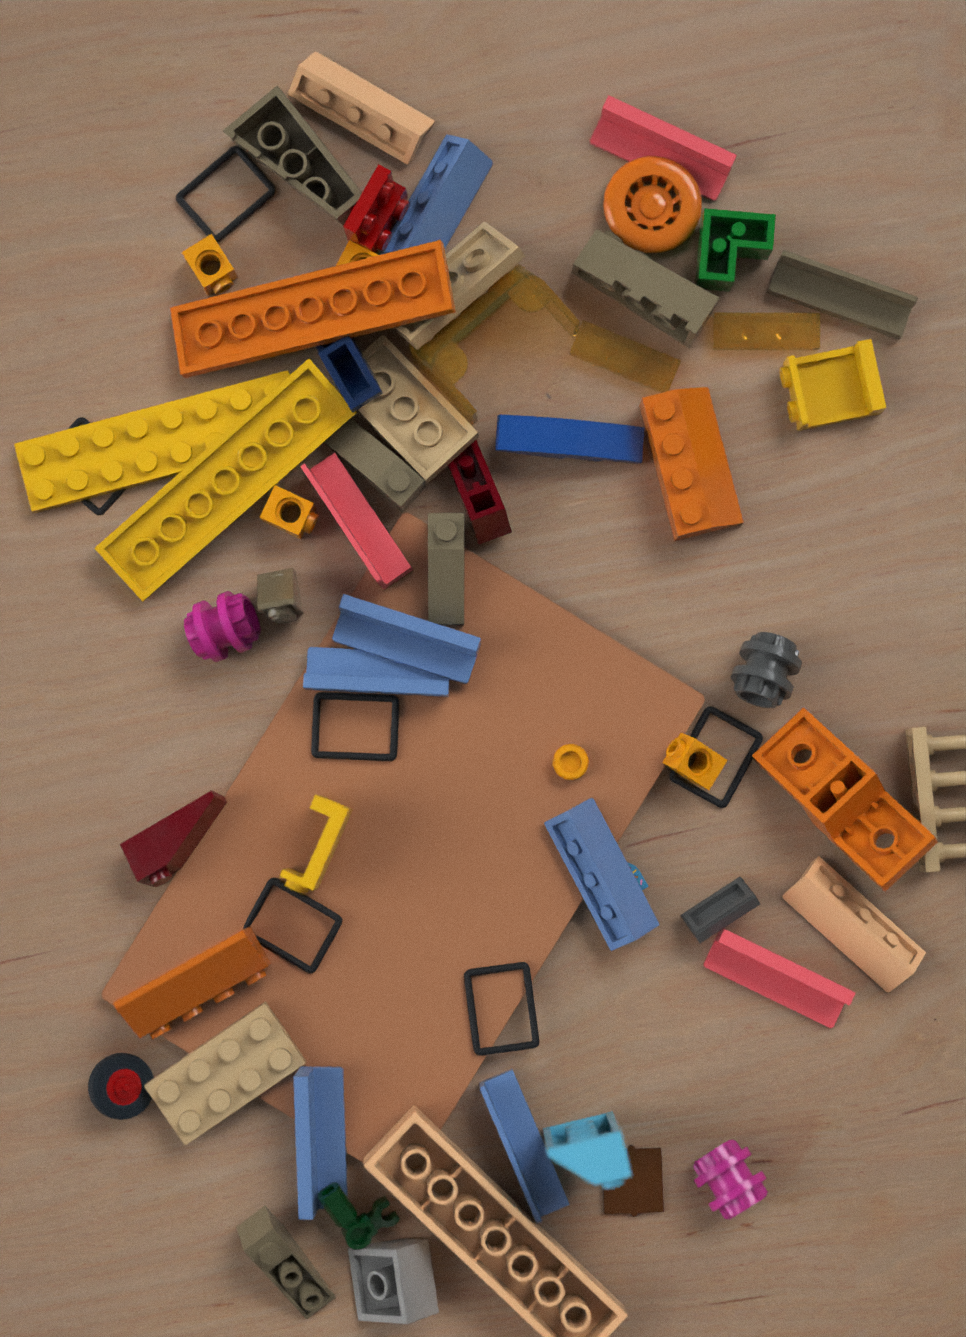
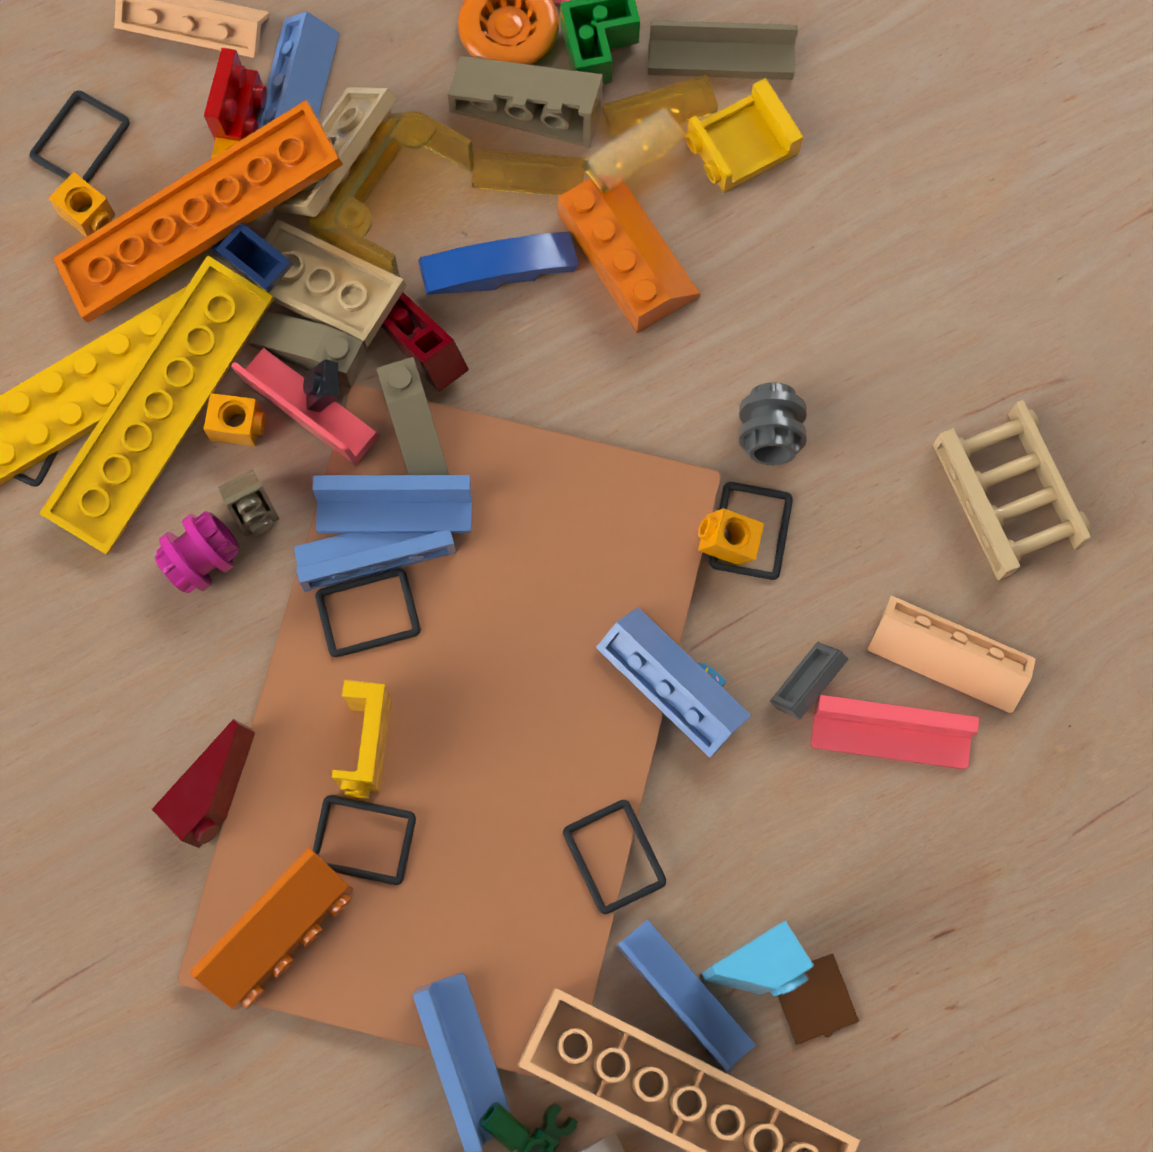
camera: 20 degrees left, 10 degrees down
(118, 1086) = (227, 1073): black wheel -> none
(225, 1073) = (337, 1022): tan plate -> none
(292, 150) = (135, 74): dark tan wedge -> none
(375, 511) = (321, 385): none -> black plate
(570, 762) = (603, 578): light orange tile -> none
(726, 372) = (633, 150): none -> clear yellow tile
(730, 1179) = (917, 958): dark pink piece -> none
(844, 799) = (898, 524): orange bracket -> none

